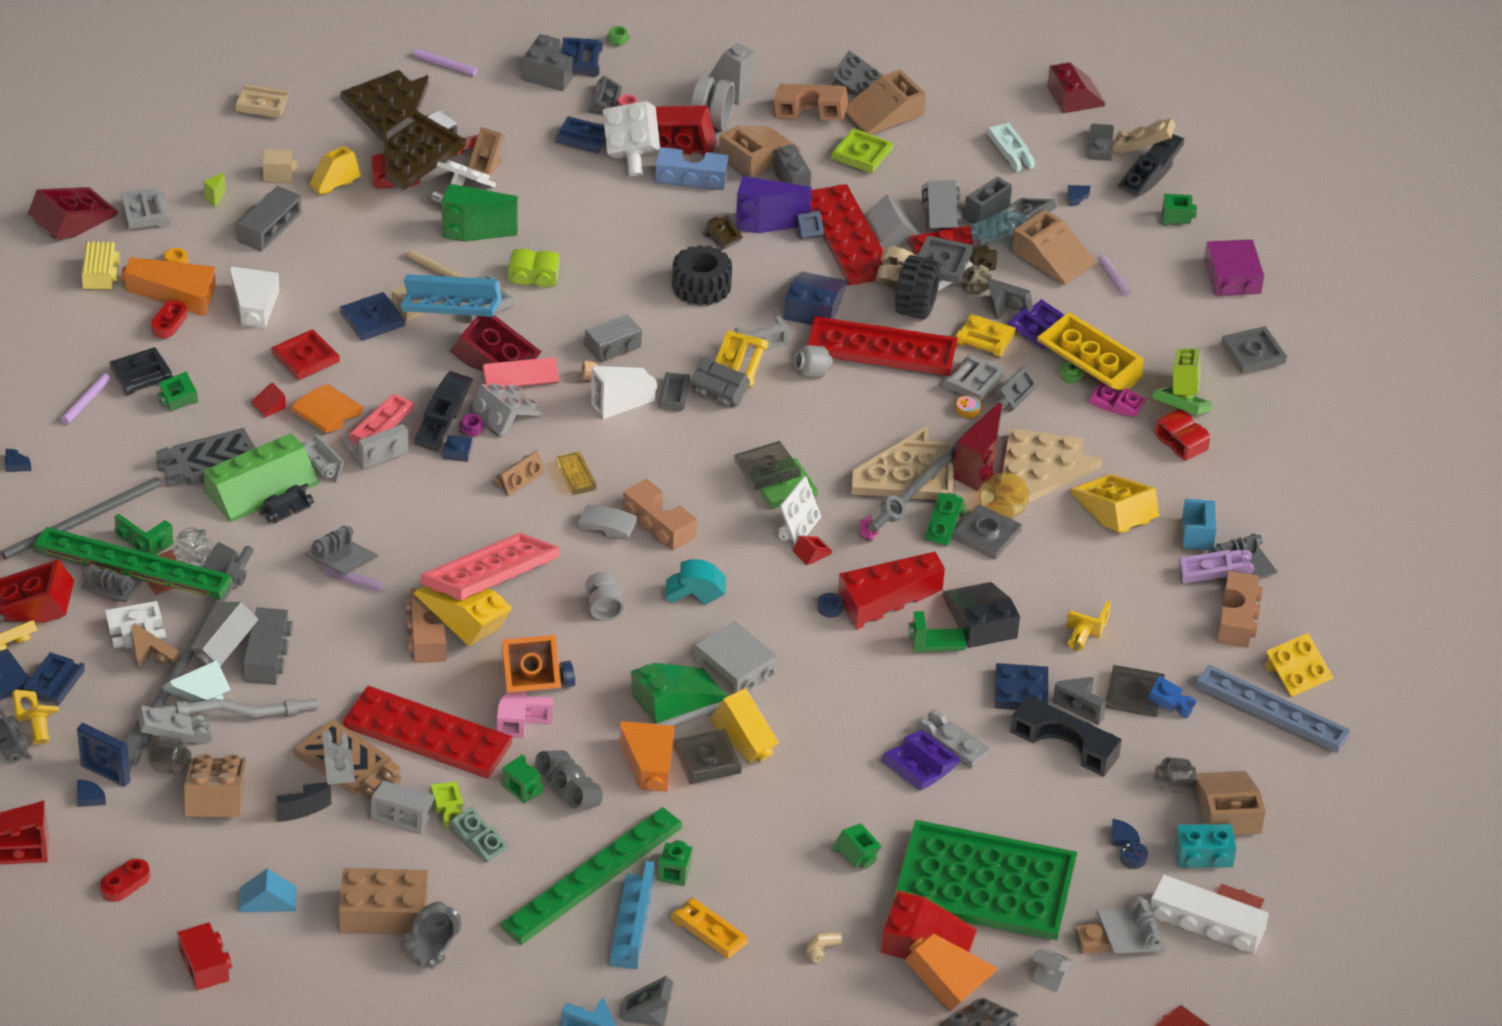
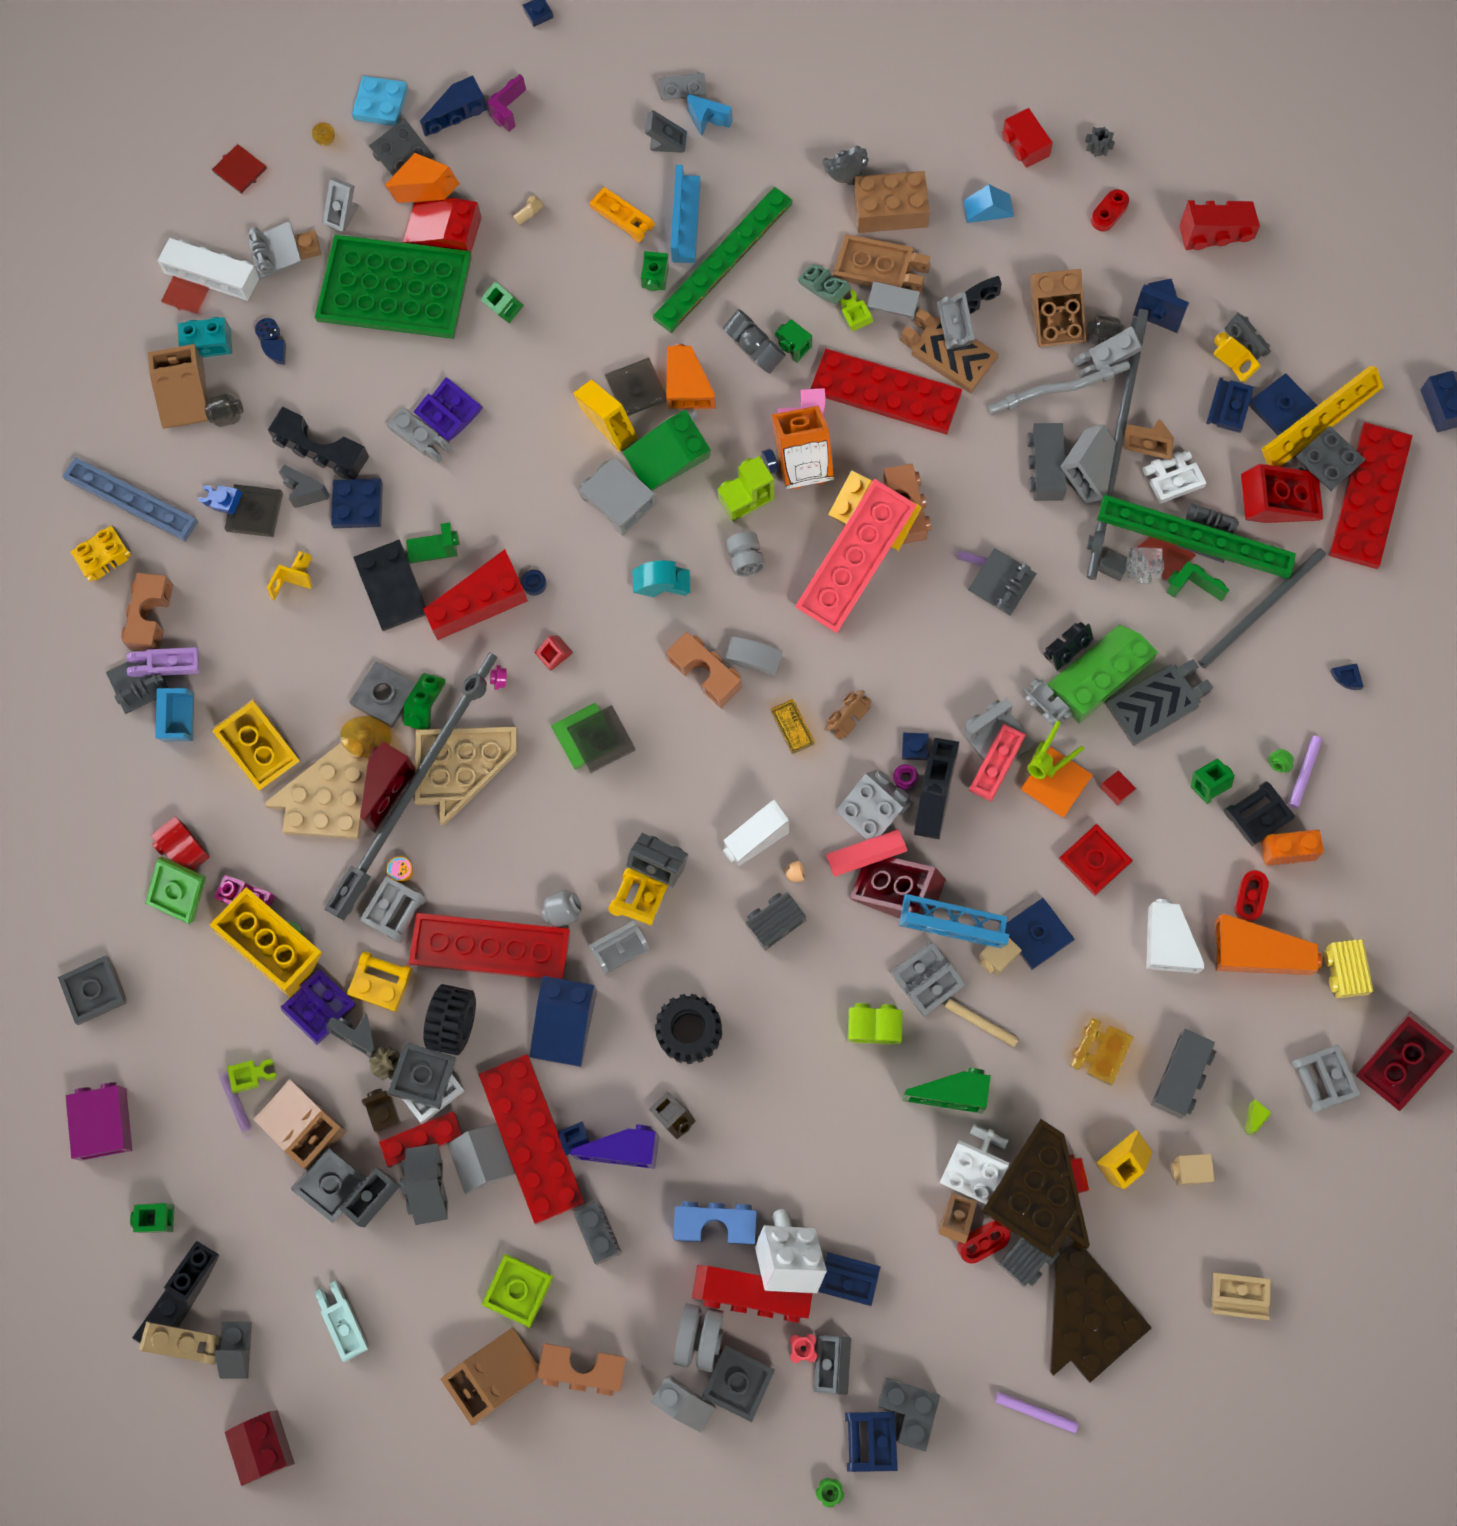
camera: 175 degrees left, 30 degrees up
(107, 402) = (1281, 761): none -> bright green plate
(116, 943) = (1099, 141): none -> dark grey gear
(119, 340) = (1292, 847): none -> orange brick
(176, 255) = (1270, 1003): light orange tile -> none
(200, 684) = (1099, 398): light aqua slope -> none
(330, 236) = (1109, 1054): none -> clear yellow plate
(338, 406) = (1042, 762): none -> lime plant
(408, 846) = (883, 262): none -> medium nougat tile
(592, 645) = (749, 490): none -> lime brick
(674, 391) = (704, 854): dark grey tile -> none
(676, 89) = (738, 1383): none -> dark grey plate
(752, 148) = (638, 1274): medium nougat slope -> none
(799, 512) = (571, 670): white hinge -> none
(855, 73) = (526, 1439): dark grey hinge -> none
(889, 273) = (476, 1061): tan wheel -> none
(996, 227) = (360, 1141): clear light blue bracket -> none
(1077, 193) = (267, 1243): dark blue tile -> none
(1101, 285) = (246, 1076): none -> lime plate
(1186, 372) = (165, 916): lime brick -> none

